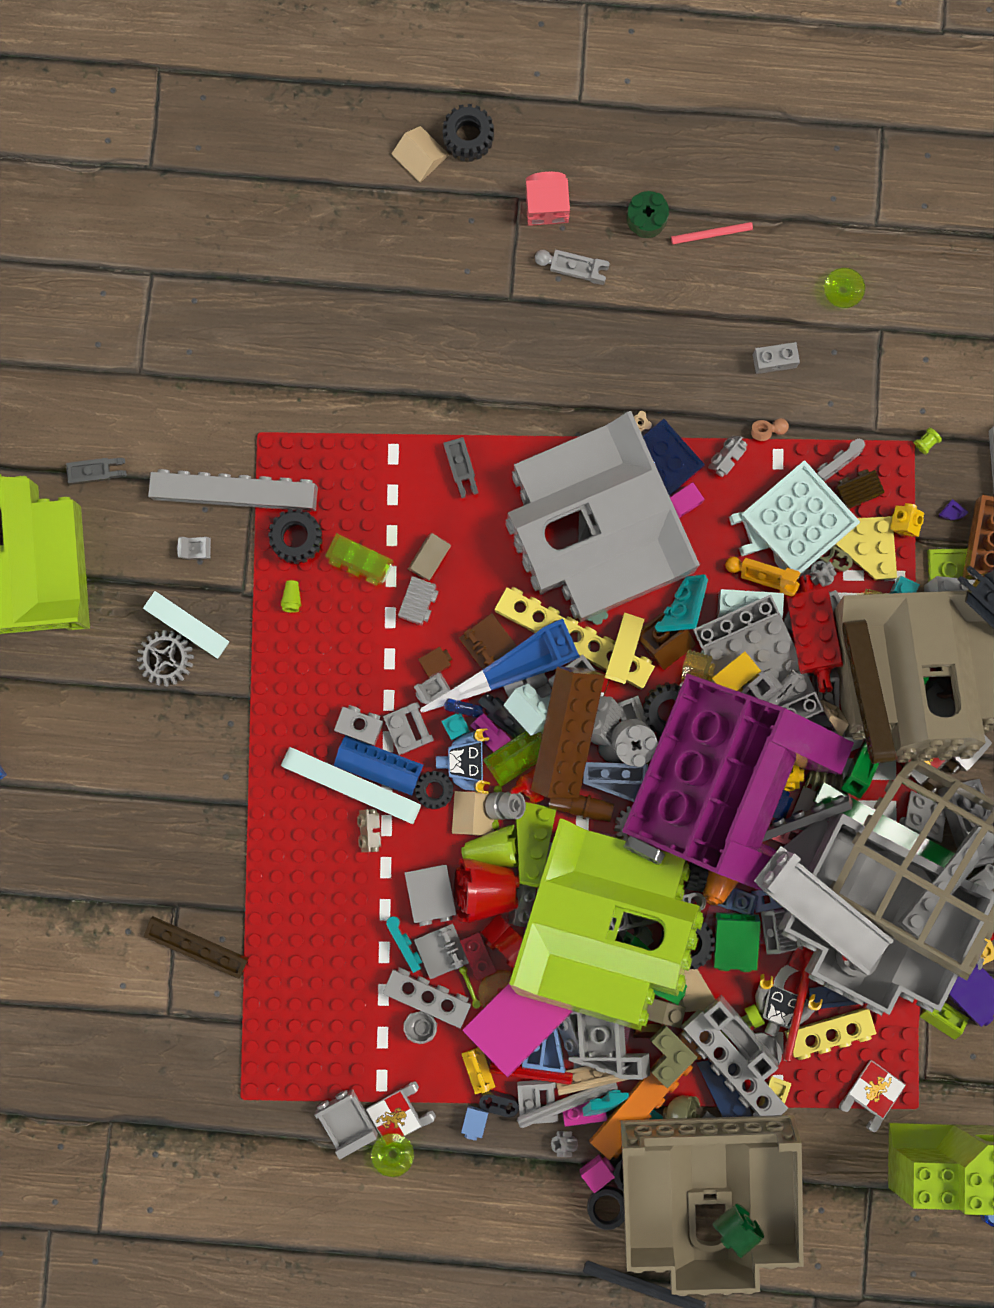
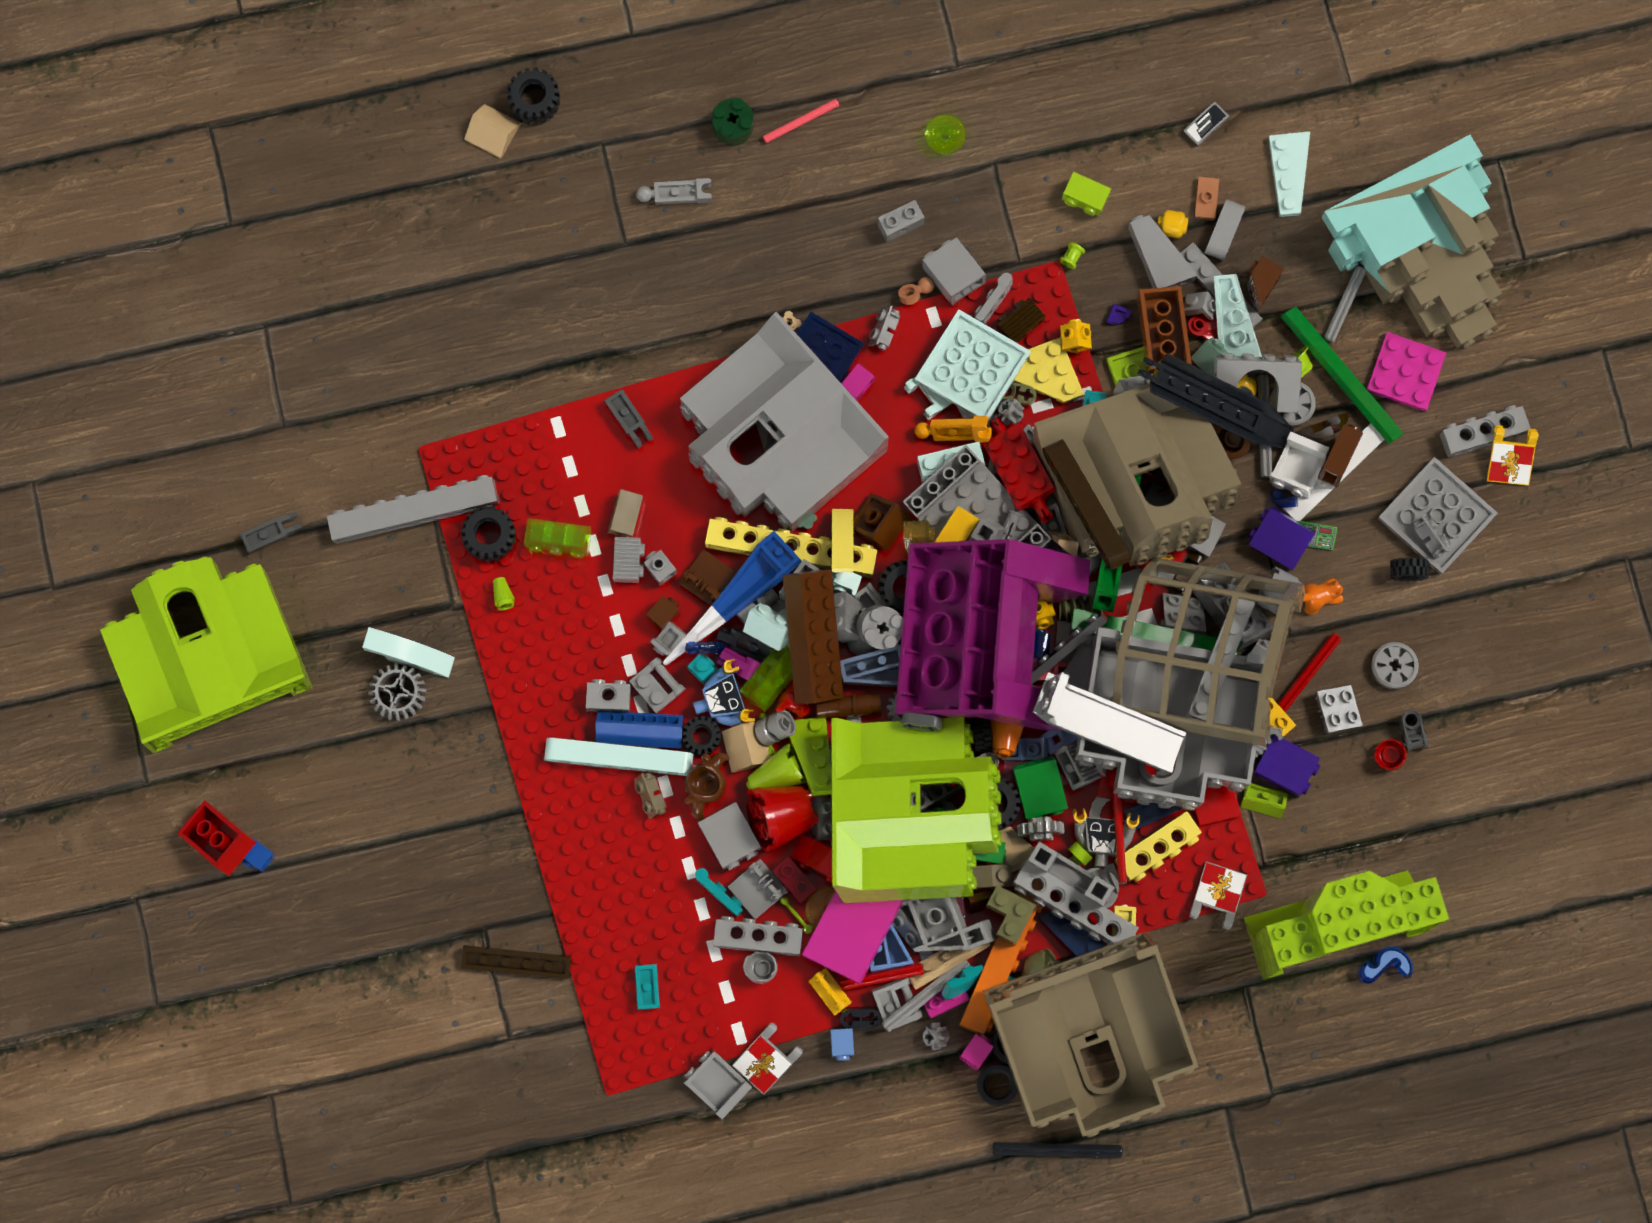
camera: 20 degrees left, 5 degrees down
(194, 548) = (392, 577): light grey bracket -> none
(309, 1011) = (647, 987): none -> teal plate
(392, 1166) = (761, 1095): clear neon green dish -> none
(423, 837) = (705, 783): none -> reddish brown piece
(445, 617) = (659, 567): none -> light grey brick
(547, 198) = (631, 136): coral piece -> none
(615, 689) = (846, 582): none -> light aqua brick
(686, 607) = (889, 484): teal wing -> none
(724, 982) = (1040, 829): none -> light grey gear
(738, 1230) = (1126, 1054): dark green brick -> none
(811, 421) = (953, 270): none -> light grey brick
(959, 387) = (1086, 194): none -> lime brick

